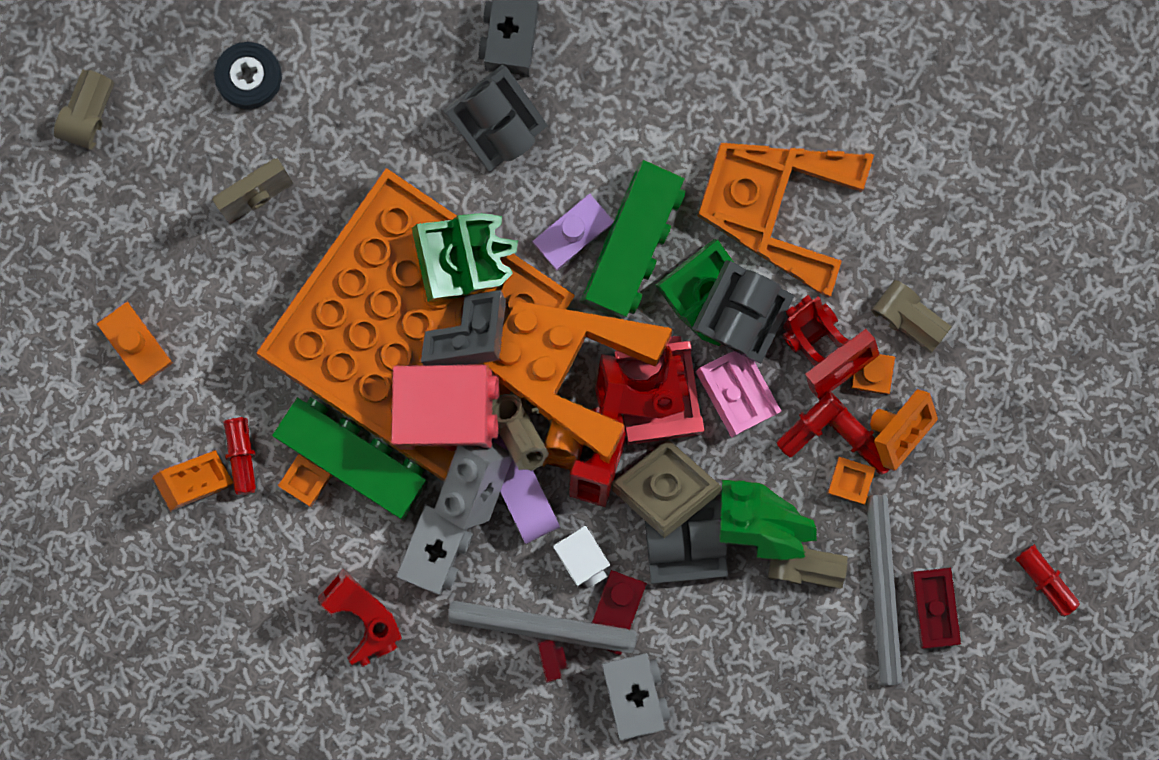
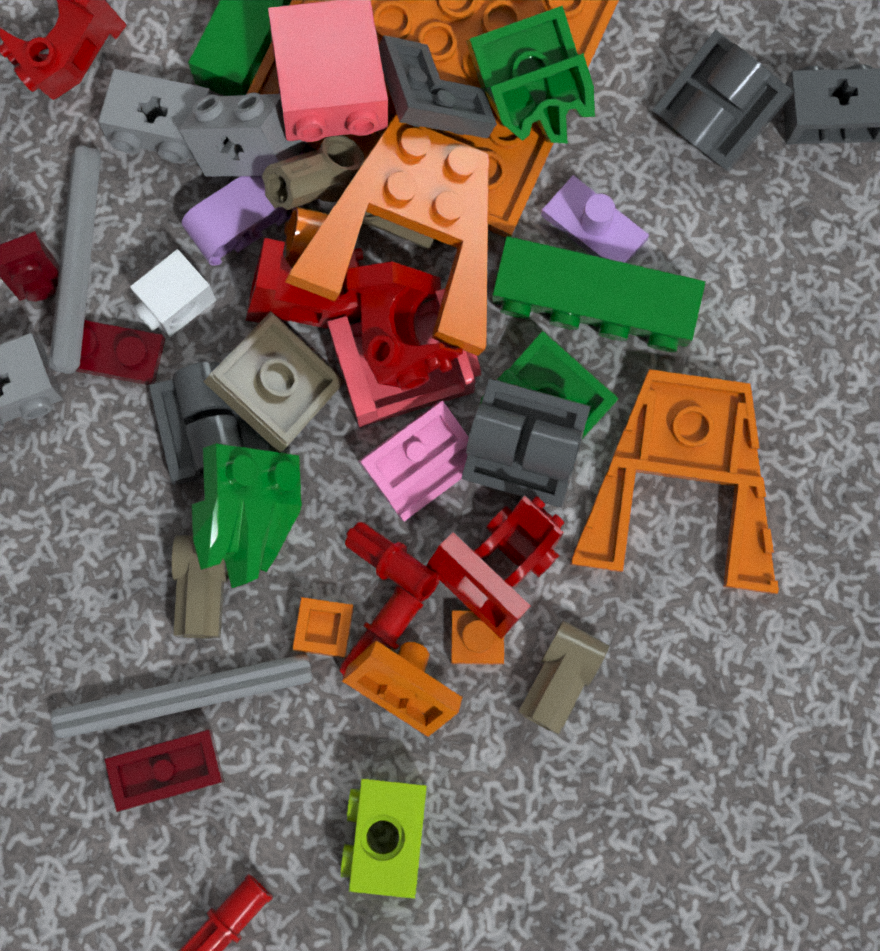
camera: 80 degrees right, 5 degrees down
(1027, 453) = (385, 872): none -> lime brick

